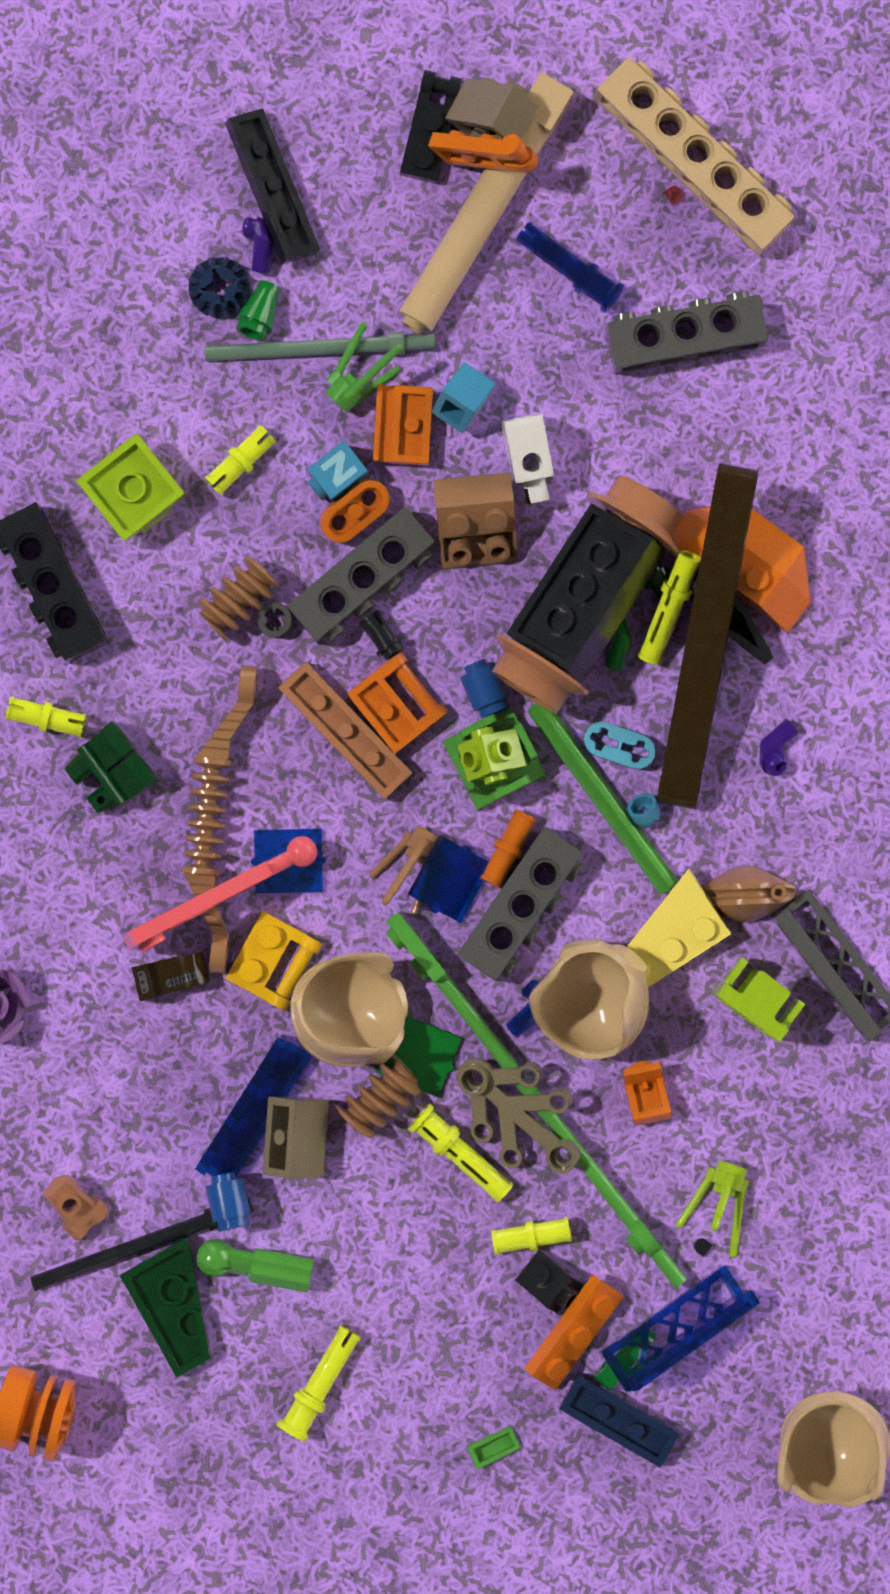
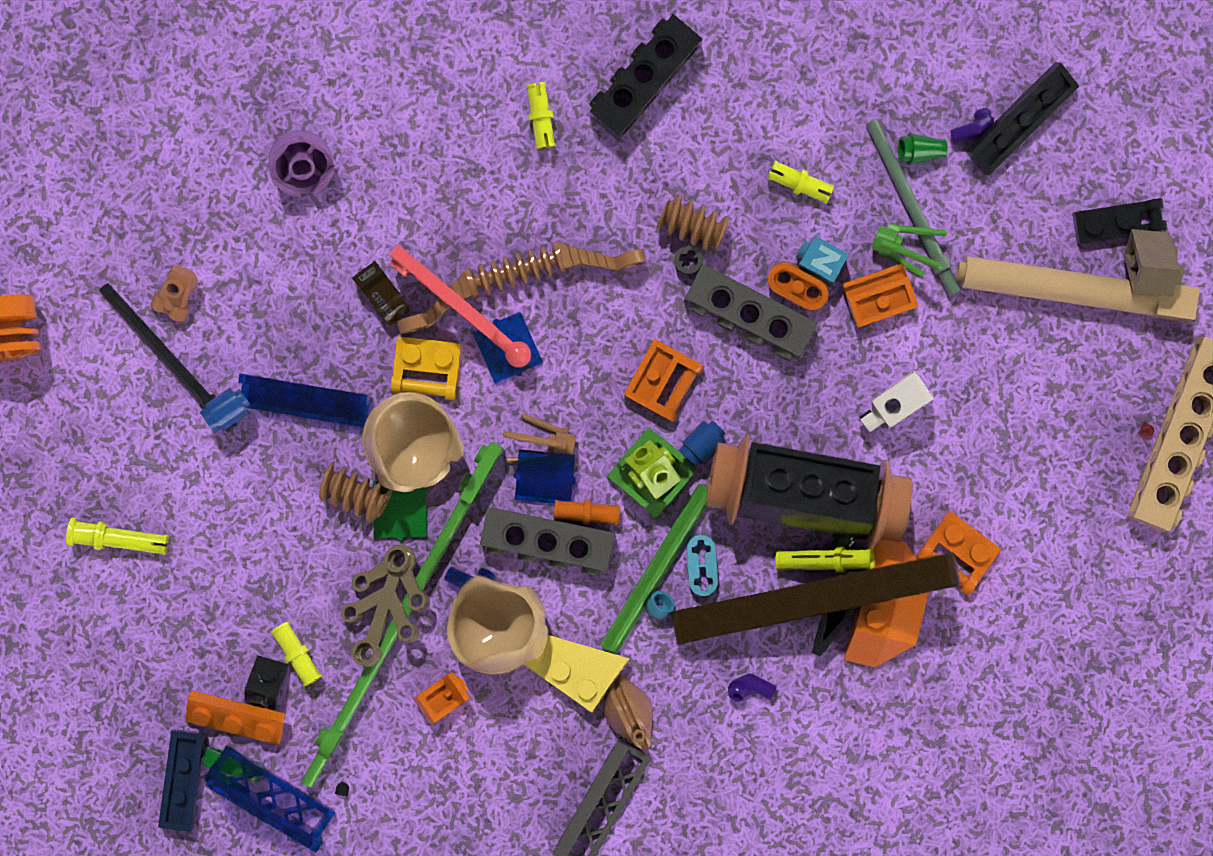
camera: 60 degrees right, 0 degrees up
(102, 755) = (524, 169): dark green hips -> none
(131, 488) = (743, 107): lime panel -> none
(171, 1305) = (129, 399): dark green wing -> none
(235, 294) = (926, 125): dark blue gear -> none
(261, 1266) = (187, 455): bright green piece -> none
(295, 1137) = (296, 440): dark tan brick -> none
(345, 730) = (625, 349): nougat plate -> none
(382, 635) = (710, 347): black pin -> none
(446, 1141) = (341, 559): neon yellow pin -> none
(463, 397) = (920, 333): dark azure brick -> none
(476, 520) = (829, 382): medium nougat slope -> none
(484, 151) = (1119, 269): orange plate -> none
(493, 1447) = (122, 691): bright green piece -> none
(585, 277) = (1054, 387): clear blue pin -> none
(618, 648) = (777, 533): green arm -> none
(630, 355) = (1080, 518): dark grey brick -> none
(717, 445) = (967, 546): none -> orange plate
(726, 1180) = (400, 788): lime plant -> none
(758, 1000) = (549, 754): lime panel -> none

